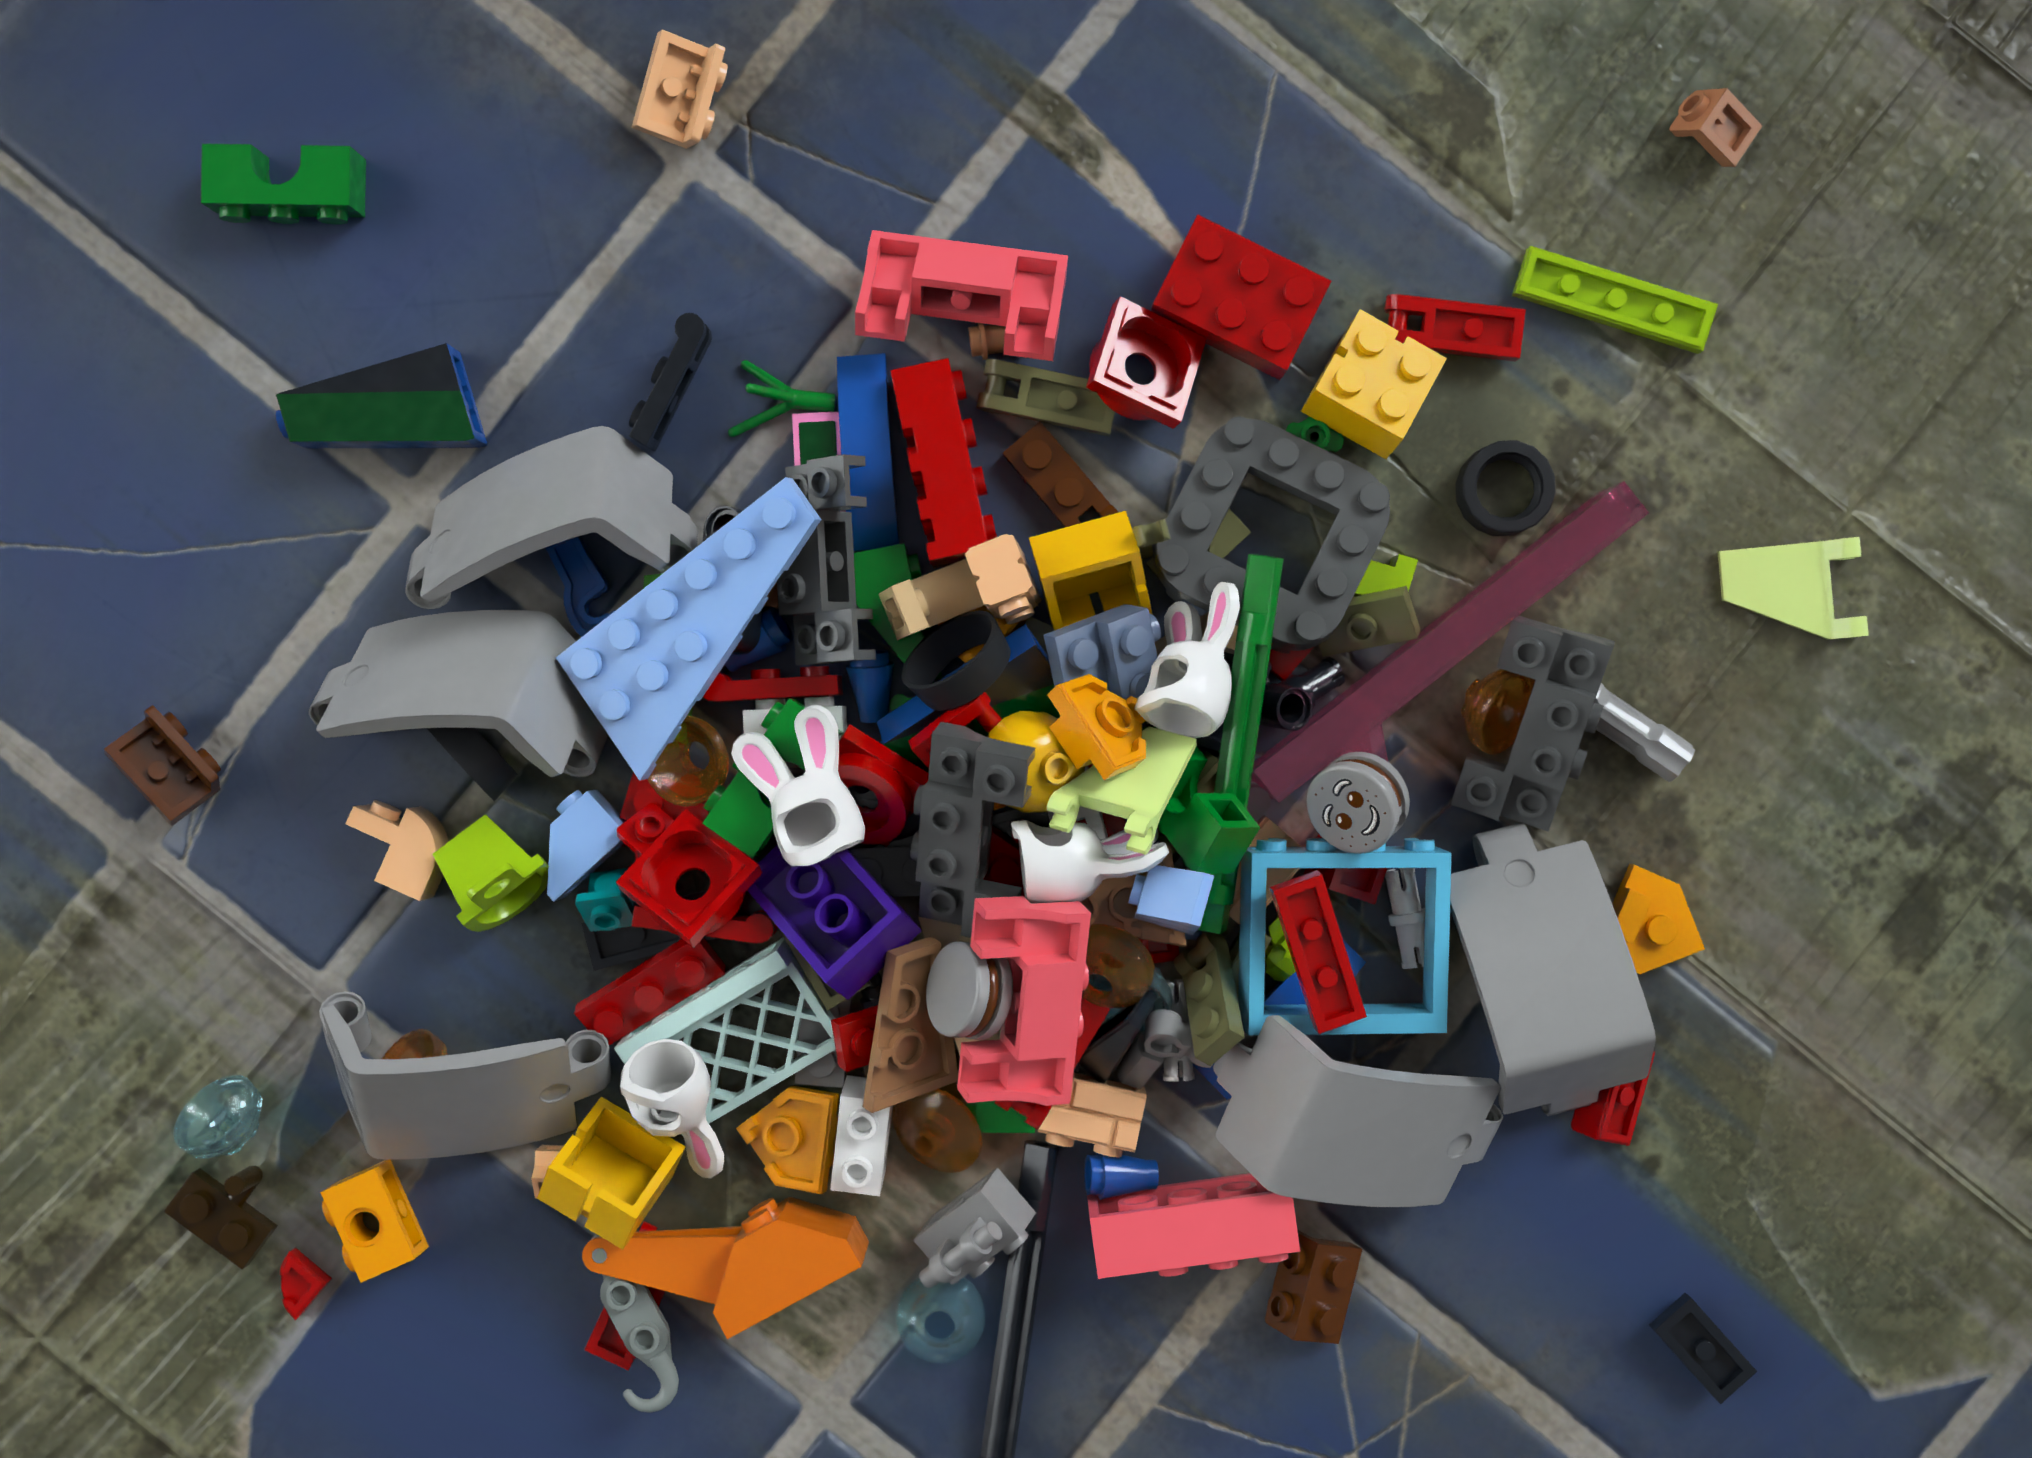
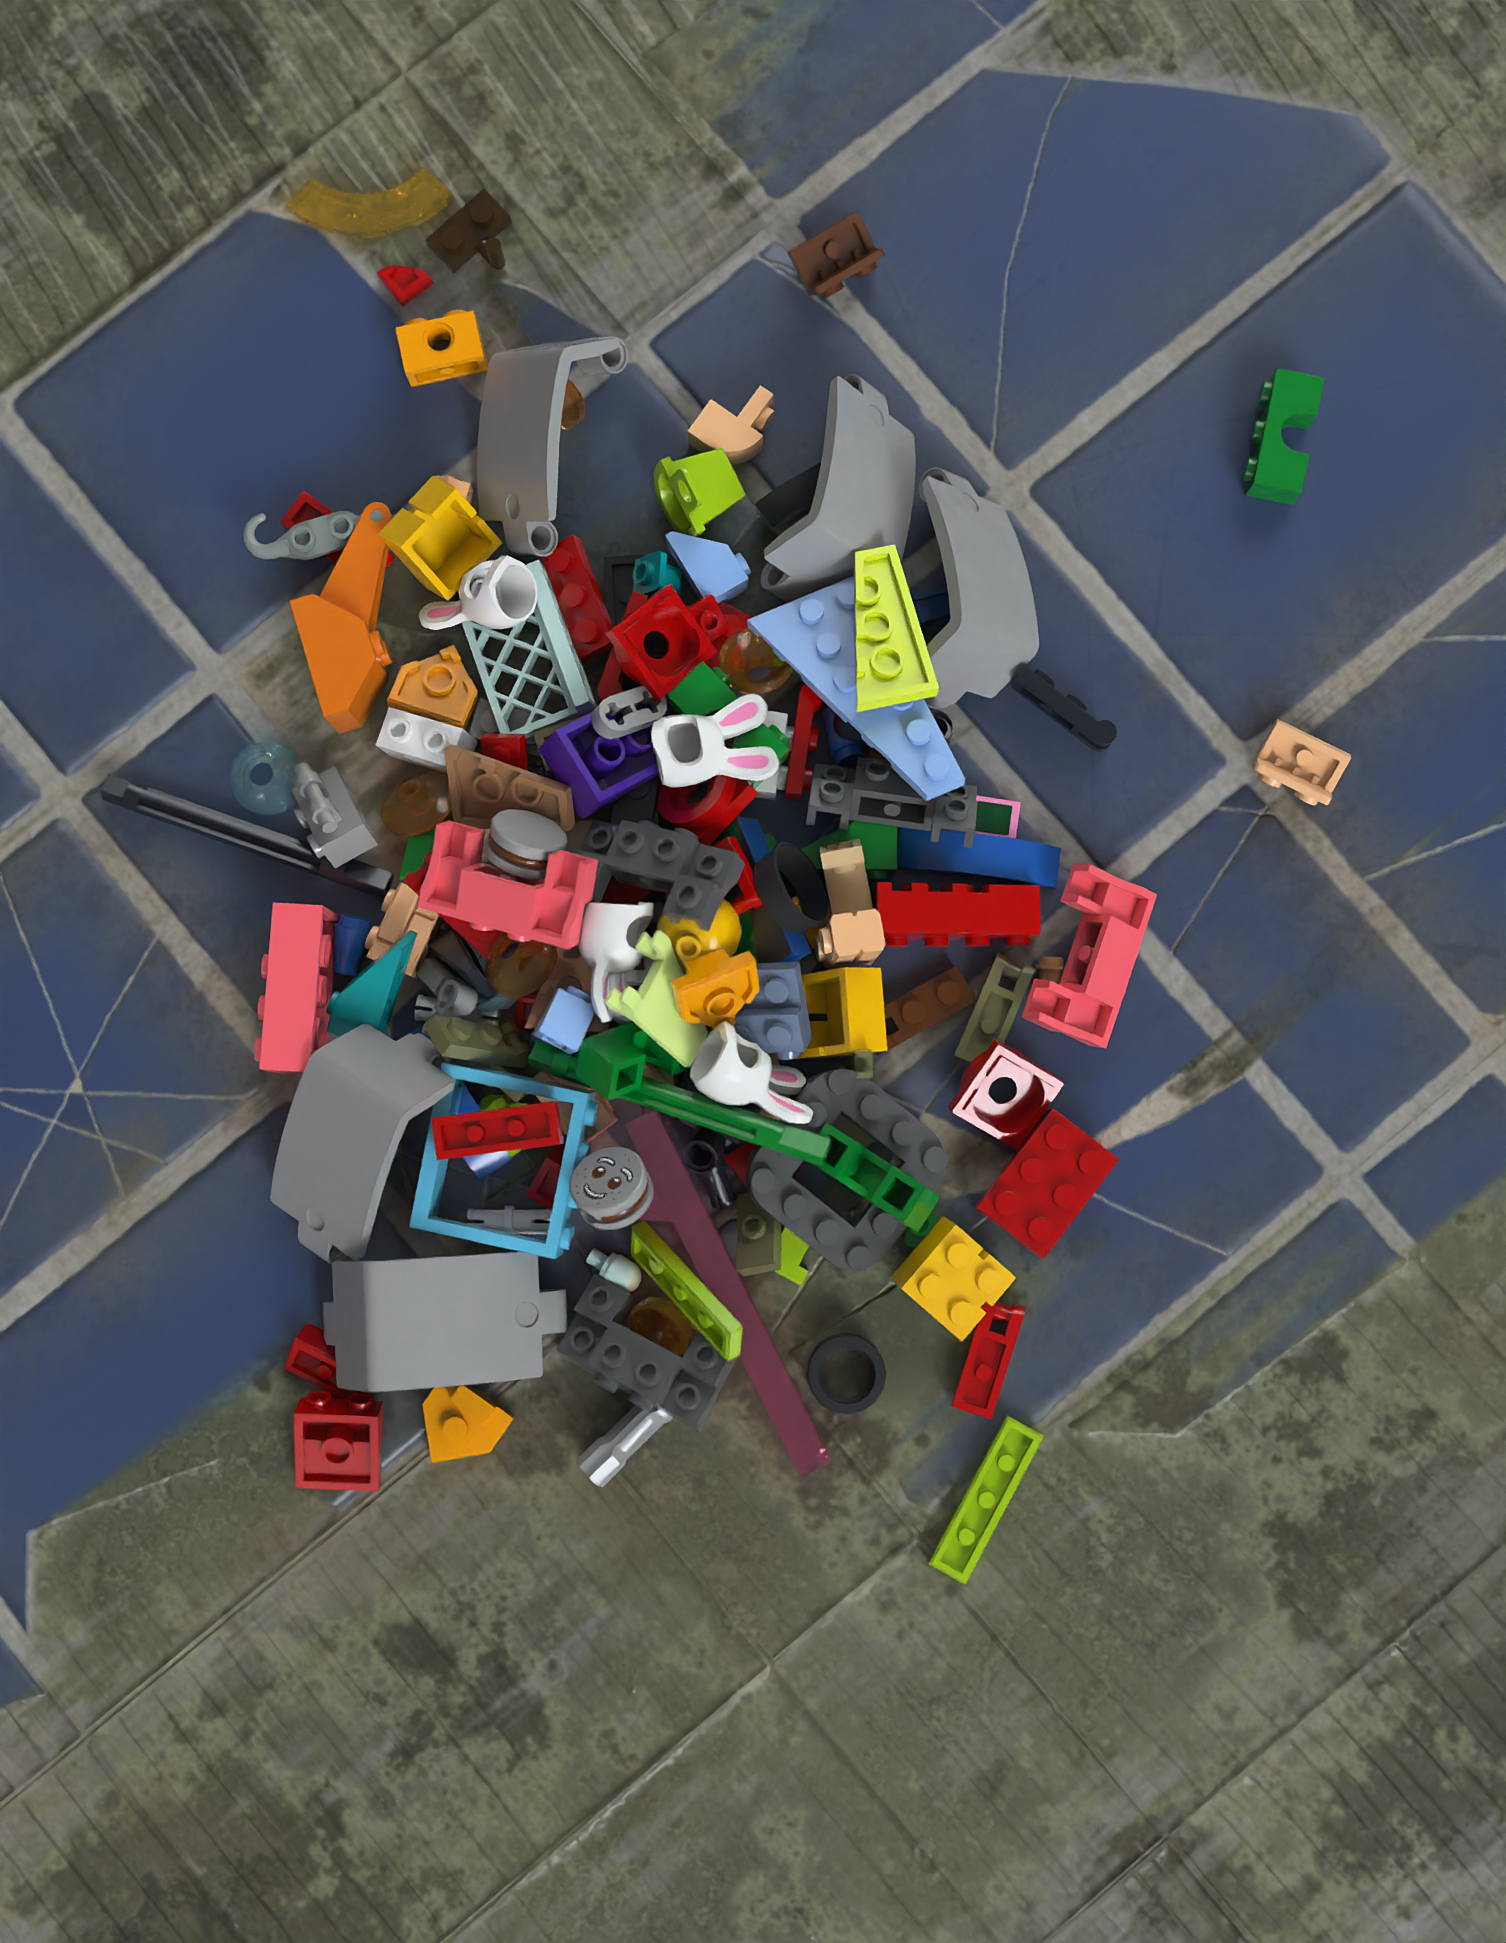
camera: 105 degrees right, 5 degrees down
(219, 1118) = (548, 244): clear light blue piece -> none
(222, 1343) = (370, 213): none -> clear yellow tile
(391, 404) = (1088, 487): slope -> none
(635, 602) = (889, 642): none -> neon yellow wing
(779, 391) = (1034, 802): green plant -> none
(791, 893) = (632, 719): none -> light grey beam
(872, 686) = (788, 822): blue cone -> none
(1175, 1136) = (372, 992): none -> teal slope
(1281, 491) = (877, 1180): none -> green arch
(1314, 1290) = (223, 1082): reddish brown bracket -> none
(1440, 780) = (616, 1269): none -> light aqua cylinder
(1457, 689) = (686, 1291): none -> lime tile
(1703, 1348) = (104, 1393): black plate -> none
(1706, 1063) = (338, 1442): none -> red plate
(1717, 124) = (1115, 1614): nougat bracket -> none
(1791, 585) = (718, 1598): yellowish green flag -> none

